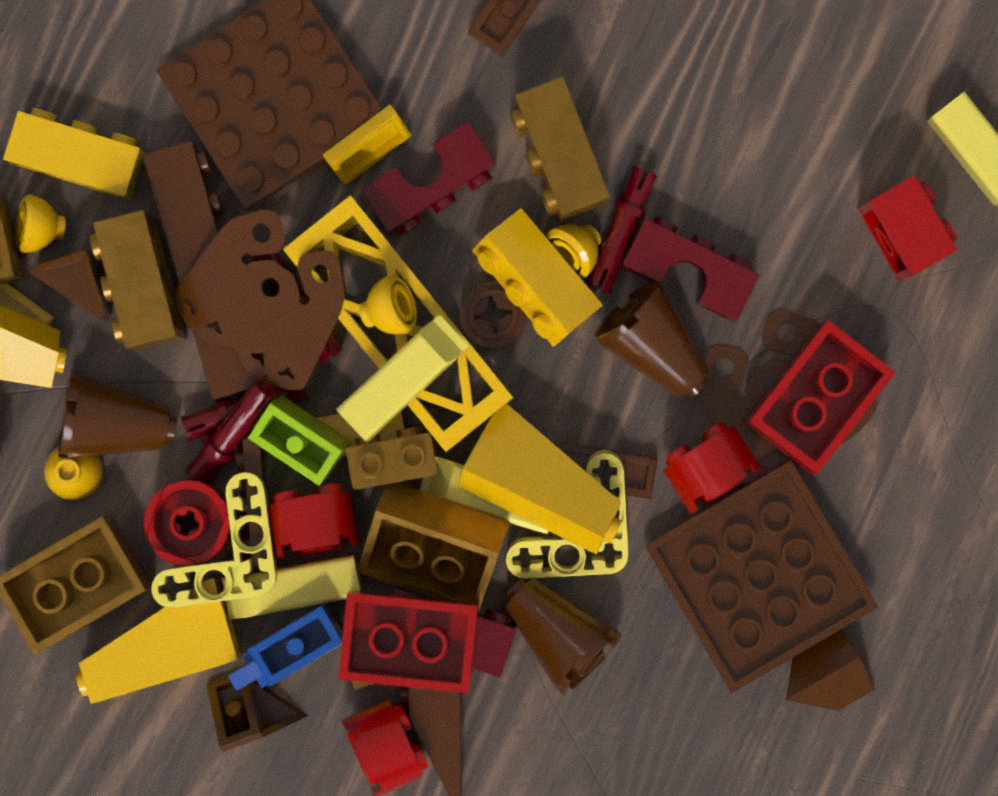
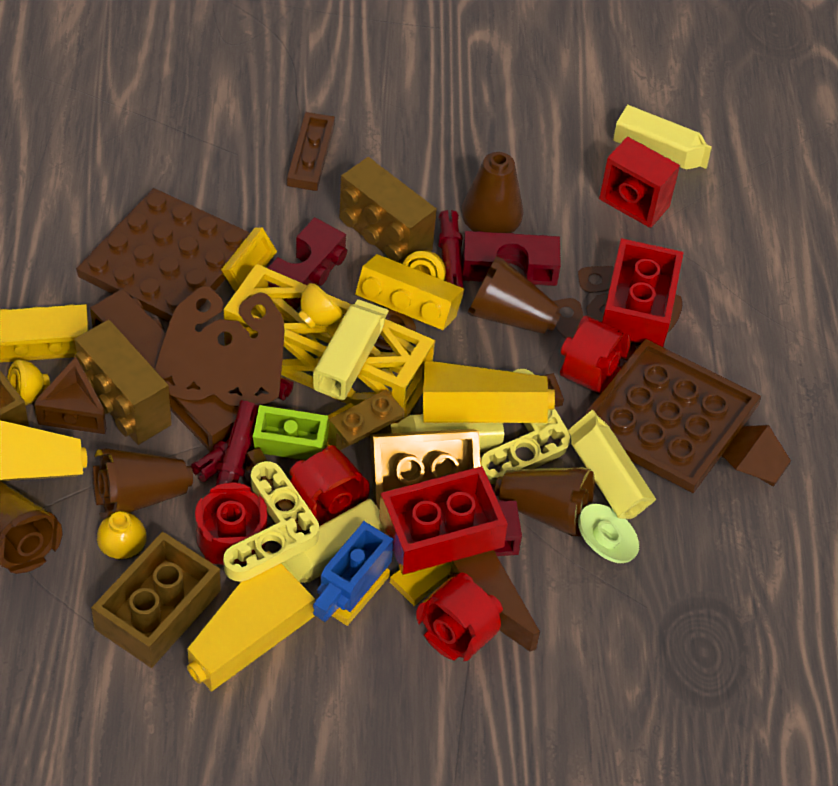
camera: 35 degrees left, 35 degrees down
(248, 712) = (336, 648): reddish brown slope -> none
(619, 707) = (608, 534): none -> yellowish green dish
(649, 625) = (611, 466): none -> light yellow piece
(703, 191) = (494, 196): none -> reddish brown cone

